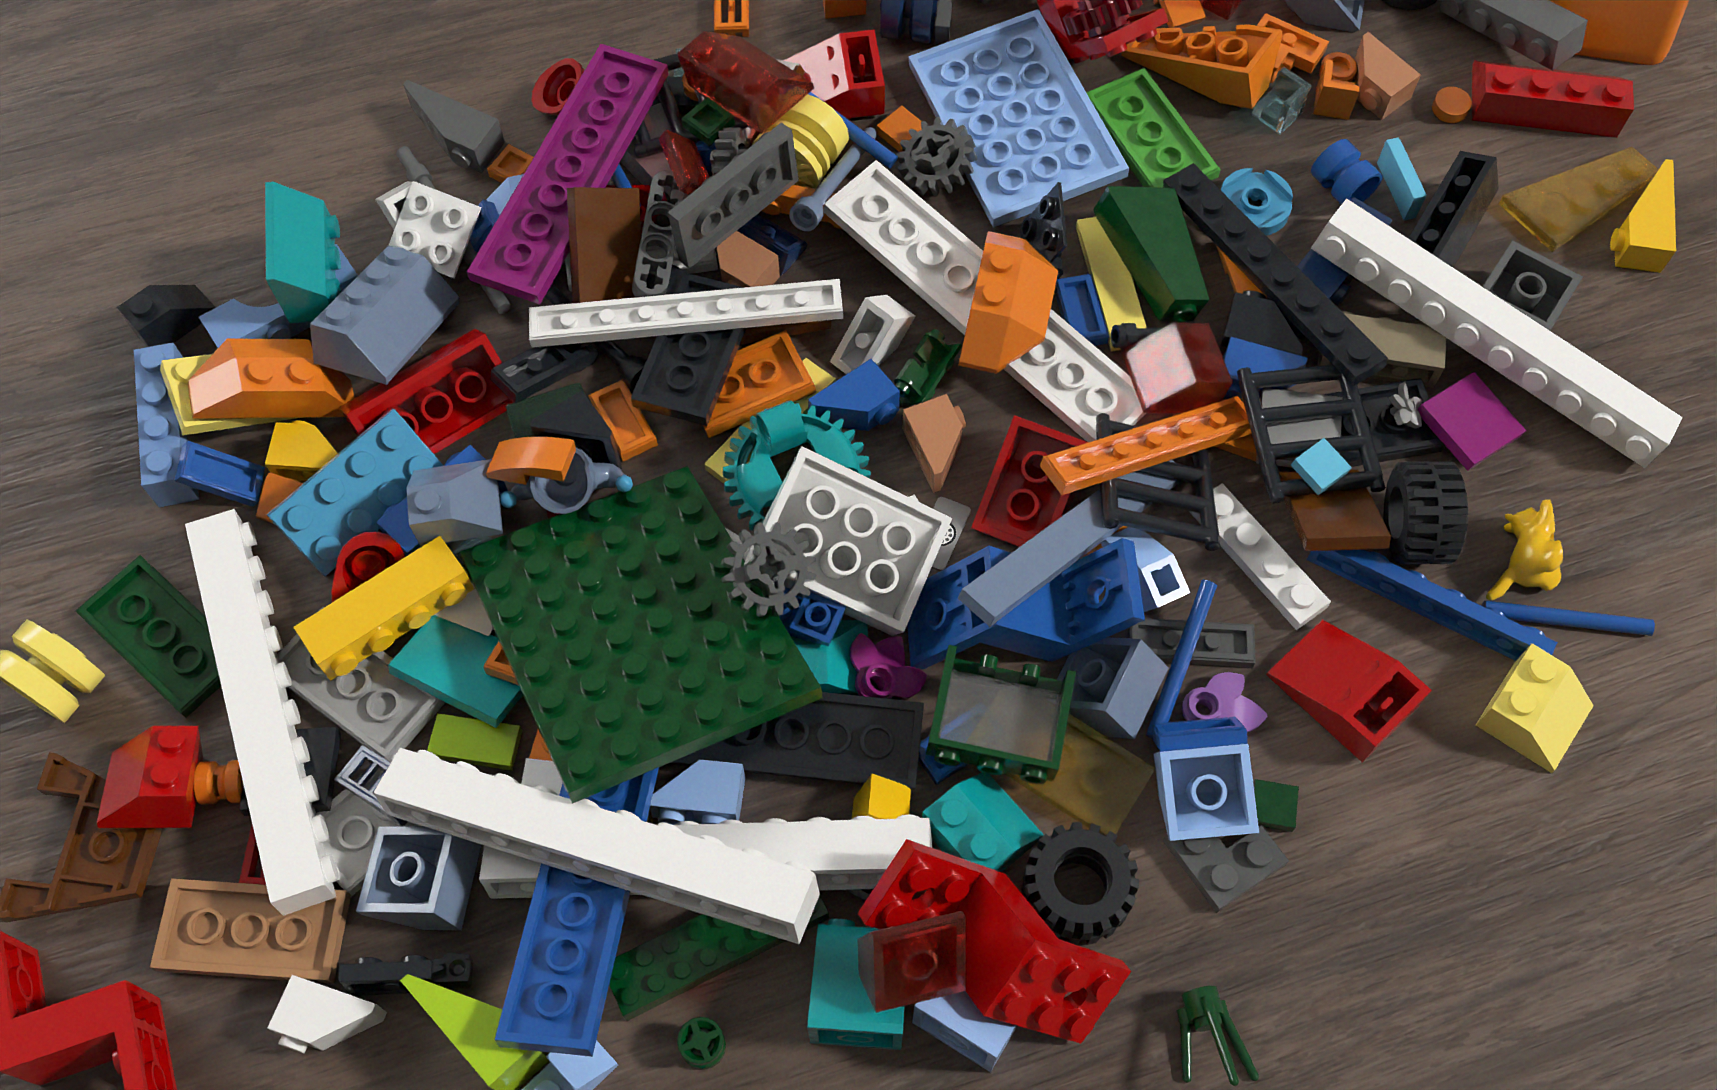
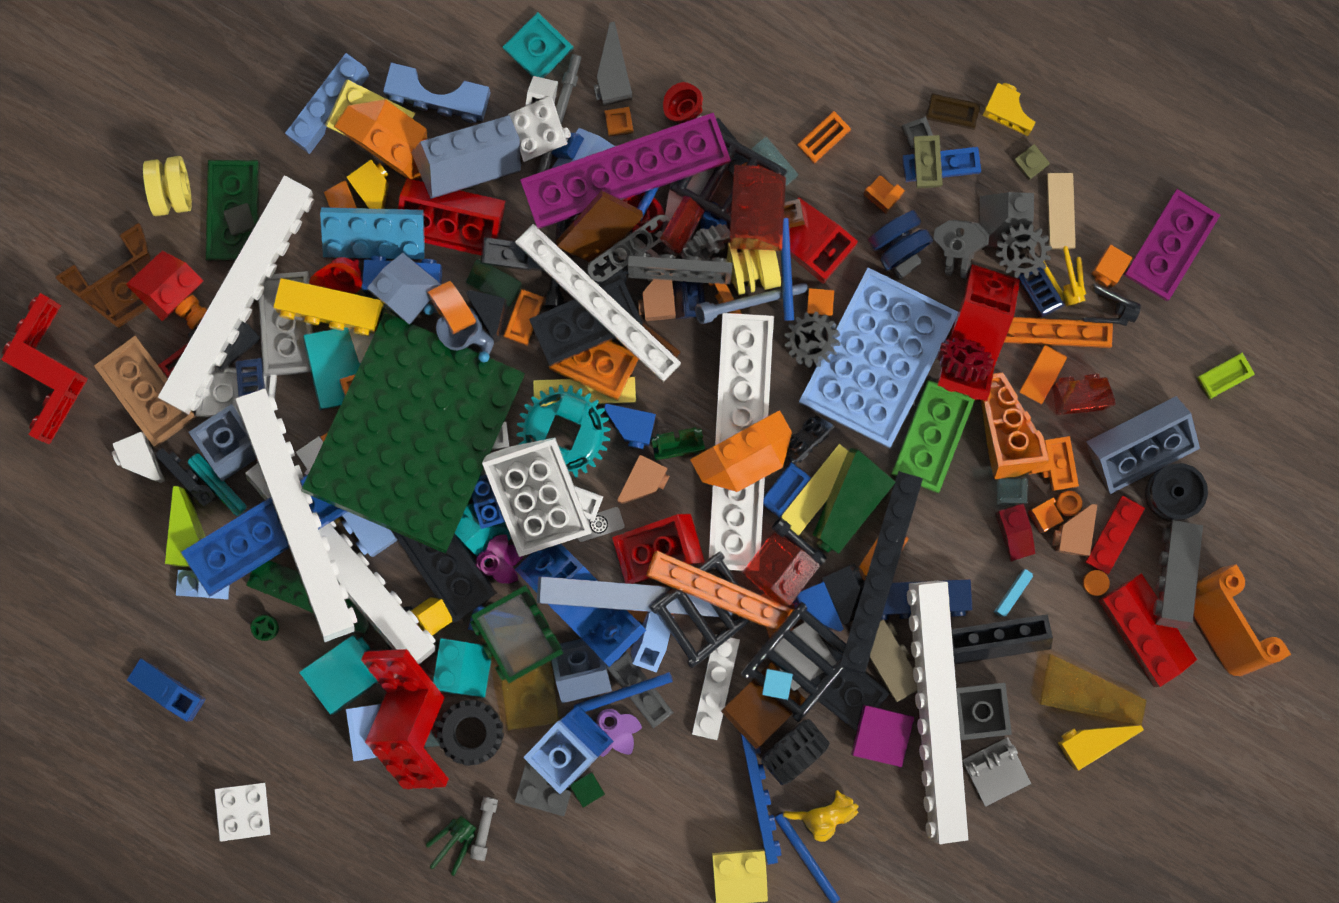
camera: 45 degrees right, 20 degrees up
(165, 312) = (383, 38): black slope -> none
(179, 628) = (239, 219): none -> clear smoke tile
(220, 473) = (325, 159): blue tile -> none
(300, 252) = (461, 86): teal slope -> none
(353, 180) = (538, 47): none -> teal tile
(468, 941) = (219, 487): none -> teal axle
(475, 741) = (305, 402): lime tile -> none
(707, 121) = (718, 210): dark green tile -> none
(771, 588) = (472, 471): dark grey gear -> none
(873, 333) = (674, 400): white slope -> none
(914, 961) = (361, 694): clear red slope -> none
(1250, 1011) = (479, 850): none -> light grey bar
(1267, 187) = (945, 520): dark azure plate -> none
(1325, 121) = (1016, 532): none -> dark red slope
(1343, 172) = (988, 564): blue wheel -> none
(1349, 687) = (674, 779): red slope -> none
(1402, 37) = (1114, 535): none -> red plate
(1405, 408) = (858, 698): light grey plant -> none
(1610, 337) = (996, 771): none -> light grey hinge

